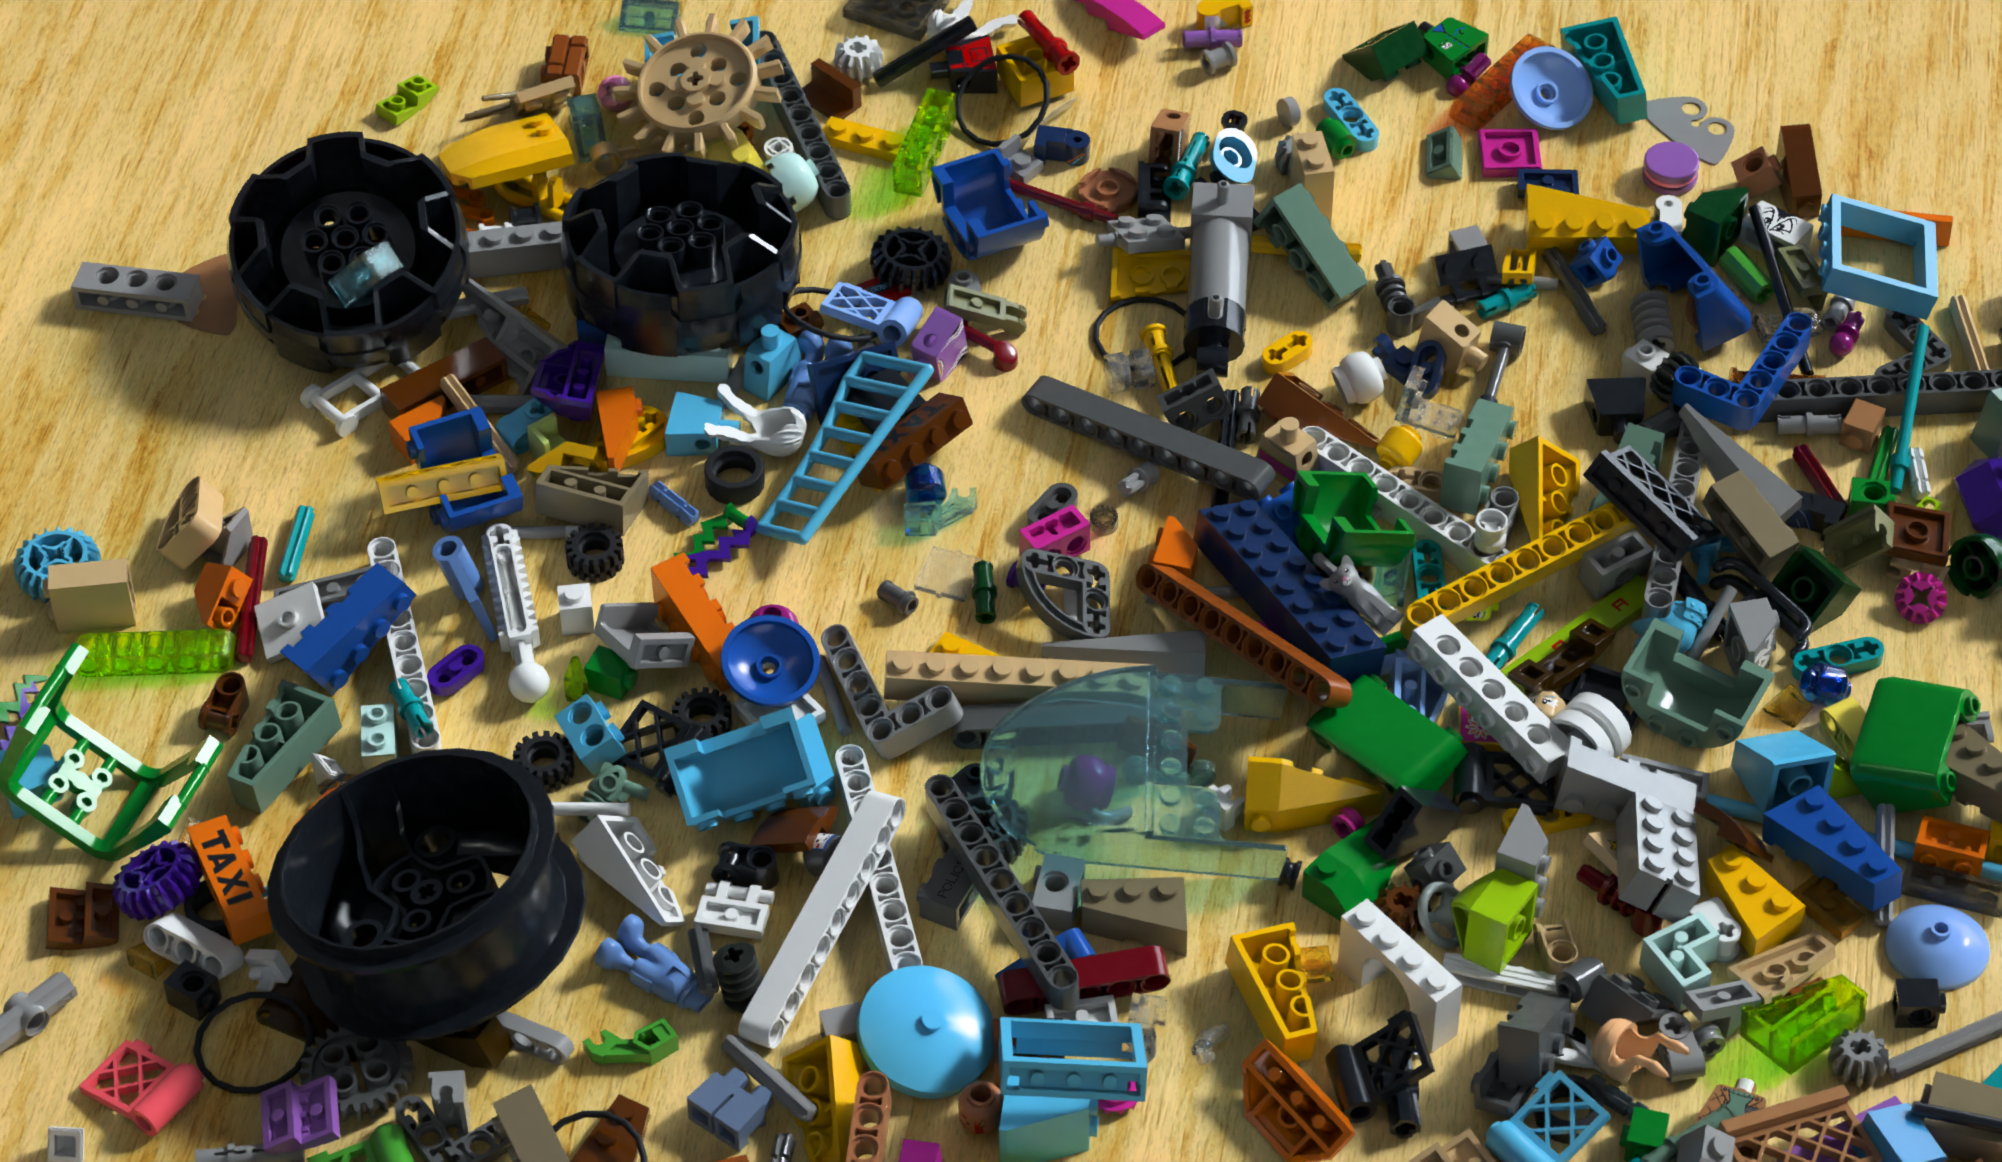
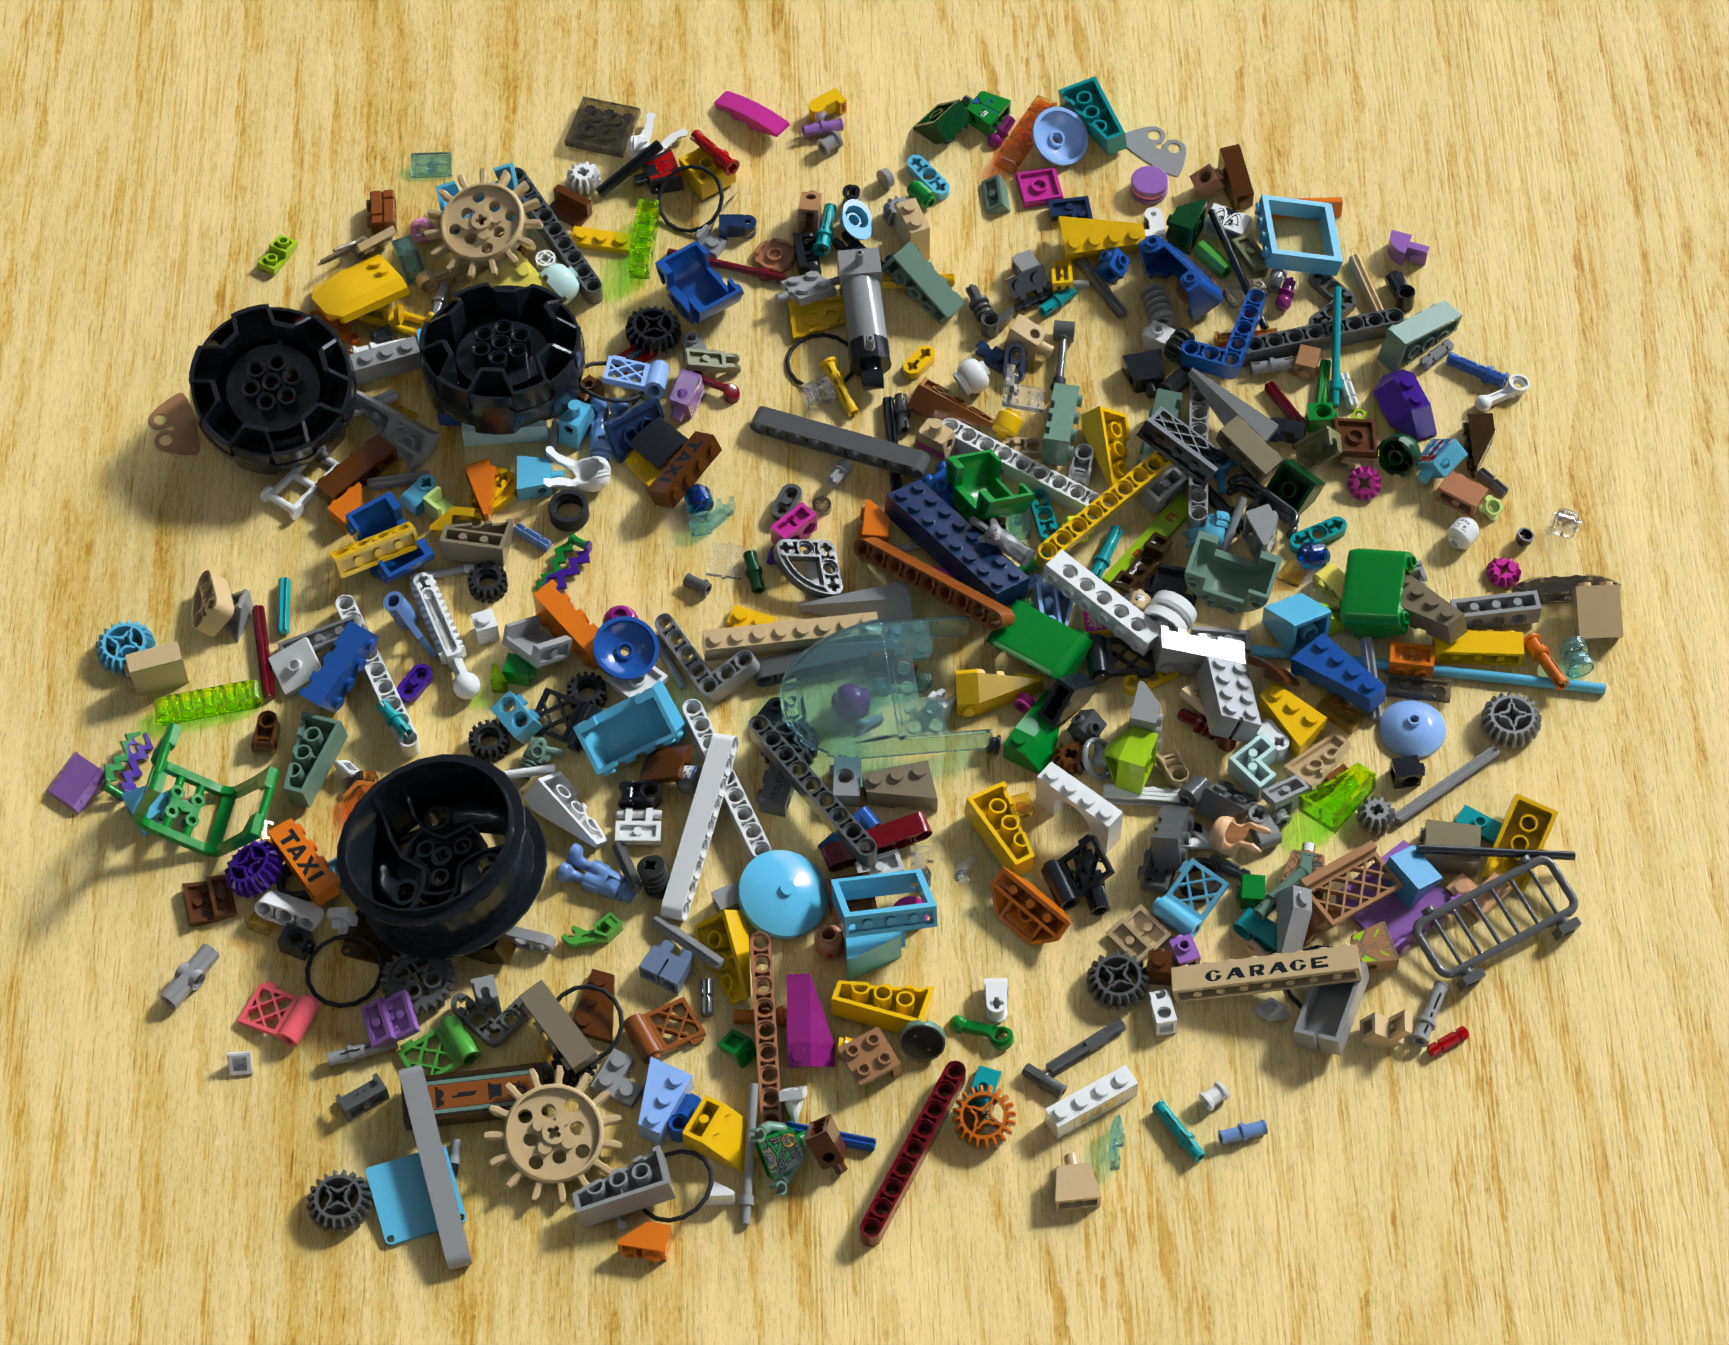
camera: 10 degrees left, 10 degrees up
(137, 291) = (127, 432): light grey brick -> none
(221, 595) = (243, 654): orange slope -> none
(364, 272) = (292, 407): clear light blue slope -> none
(378, 734) = (377, 744): light aqua brick -> none
(463, 401) = (379, 489): tan axle -> none
(569, 380) = (443, 457): dark purple wedge -> none
(829, 430) = (626, 470): medium azure bar -> none
(1192, 399) = (867, 412): dark grey brick -> none
(1490, 531) = (1080, 480): white wheel -> none

